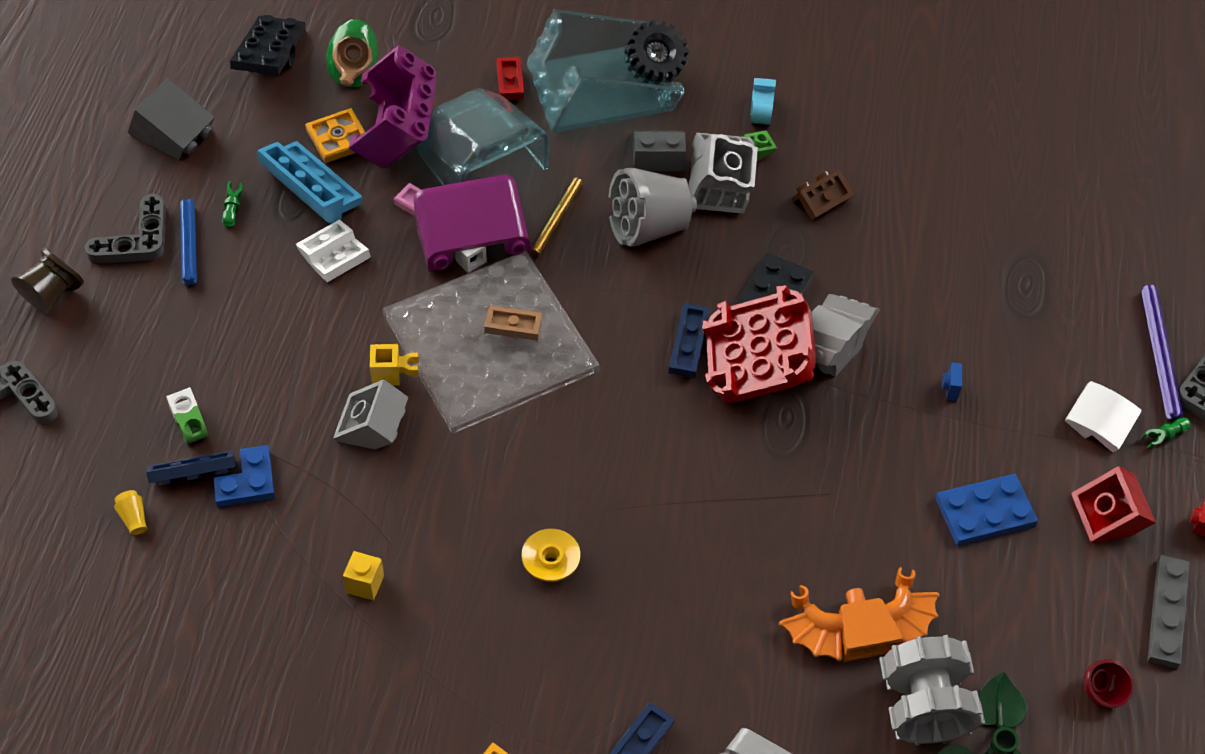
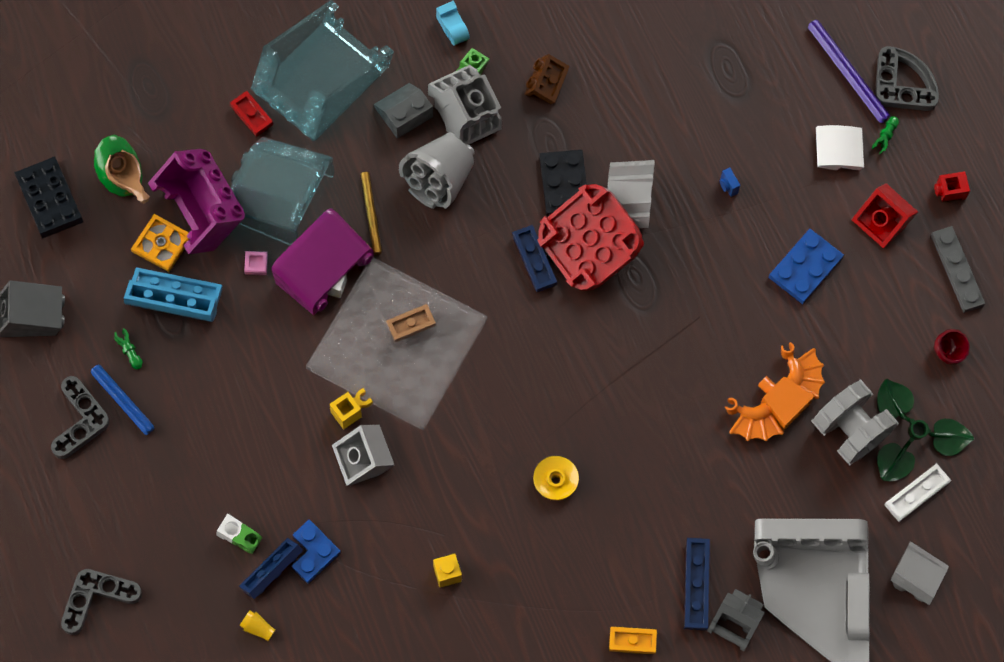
camera: 35 degrees left, 15 degrees up
(46, 281) = (54, 498): dark brown hat -> none
(333, 250) = (233, 341): white slope -> none
(656, 39) = (362, 25): black bush -> none

